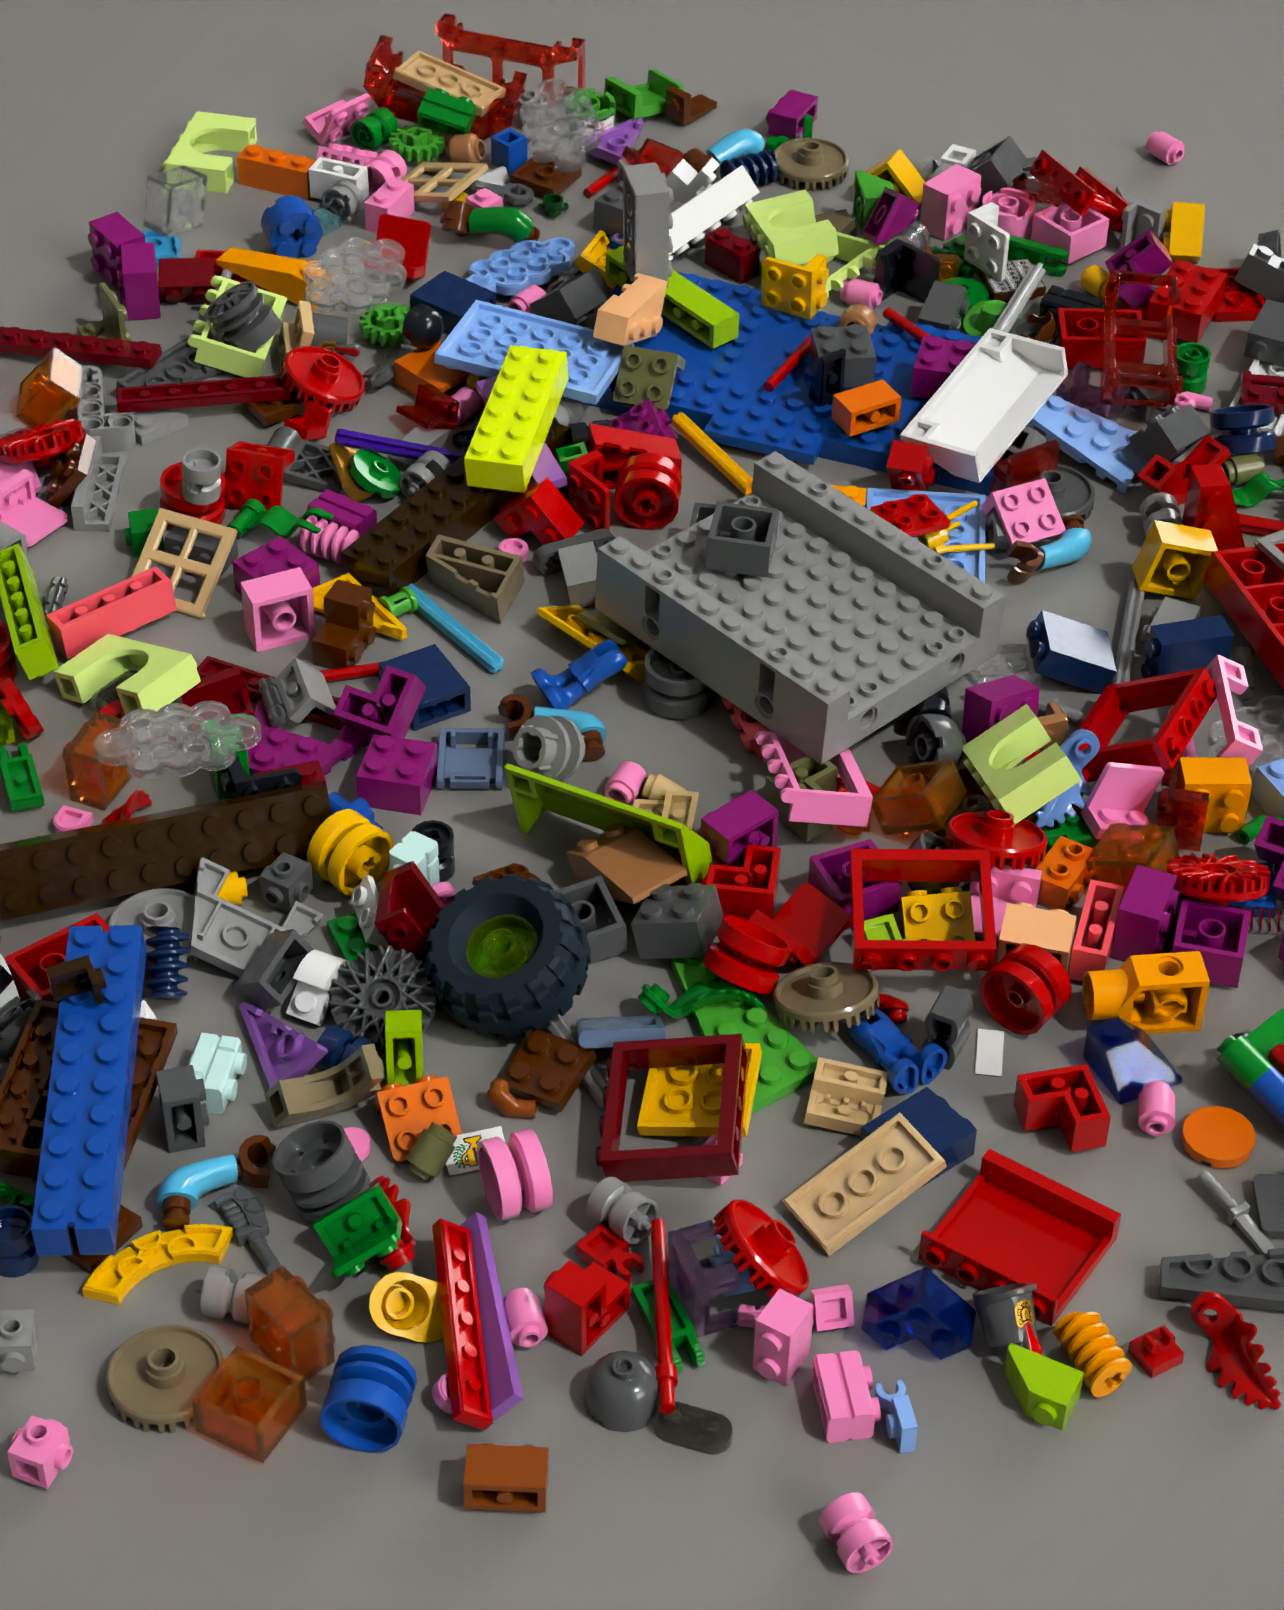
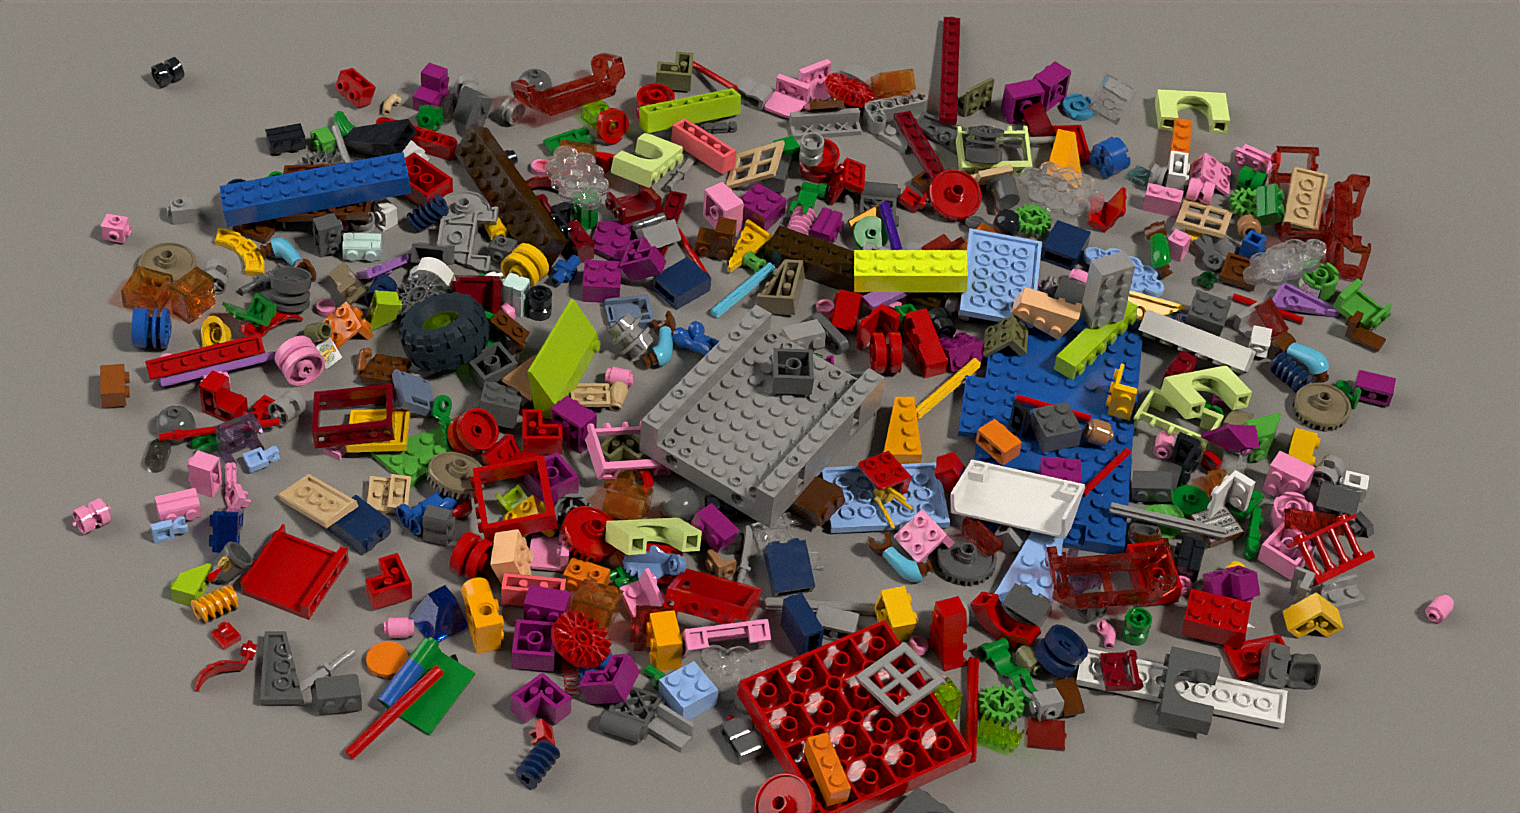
camera: 75 degrees right, 5 degrees up
(74, 978) = (358, 158): dark brown bracket -> none
(762, 1247) = (242, 457): red wheel -> none
(989, 1052) = (436, 557): white sticker -> none

